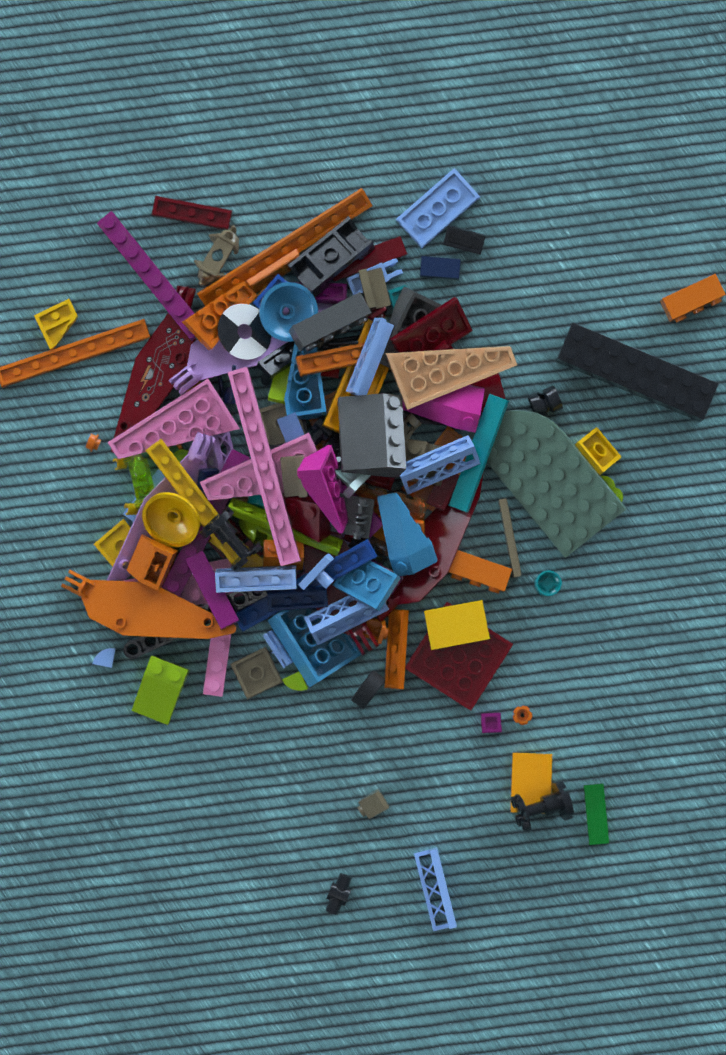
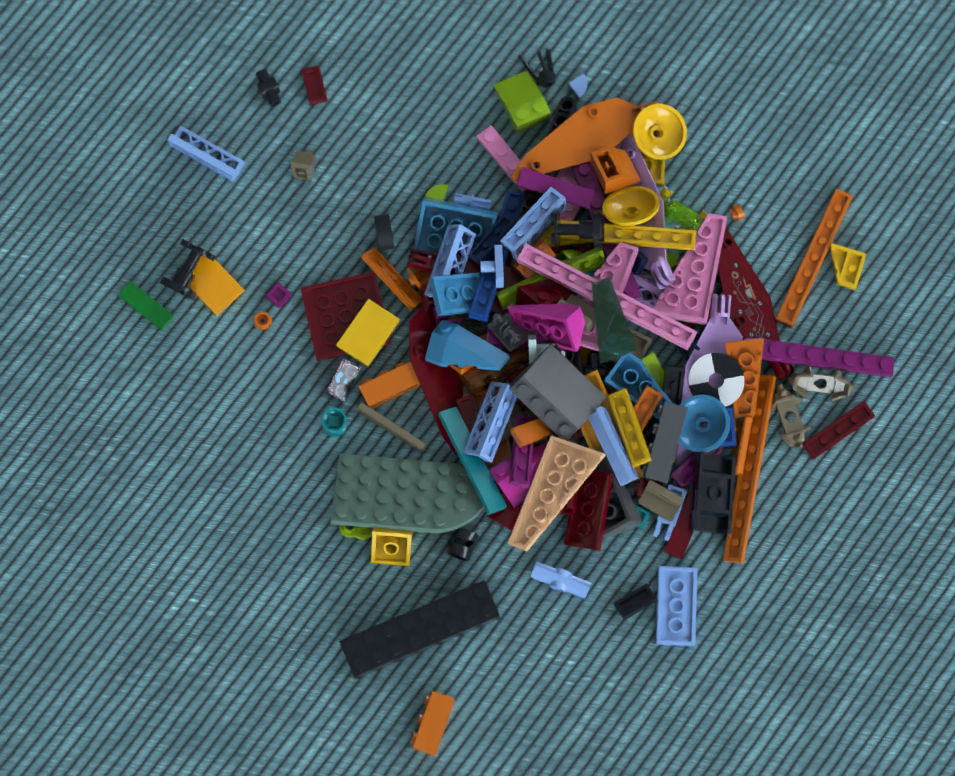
camera: 130 degrees right, 10 degrees down
(79, 549) = (668, 125): none -> yellow dish
(122, 689) = (546, 78): none -> black plant
(159, 244) = (835, 384): none -> dark tan piece
(256, 673) = (470, 173): dark tan tile -> none
(283, 440) = (611, 325): none -> clear green wing
(301, 861) = (314, 85): none -> dark red tile
(345, 358) = (629, 428): none -> yellow tile
(420, 427) = (530, 432): none -> orange tile
(438, 419) = (521, 458): none -> magenta tile
(440, 267) = (631, 565): dark blue tile -> none
(501, 307) = (560, 580): none -> light blue piece
(508, 609) = (343, 380): none -> slope

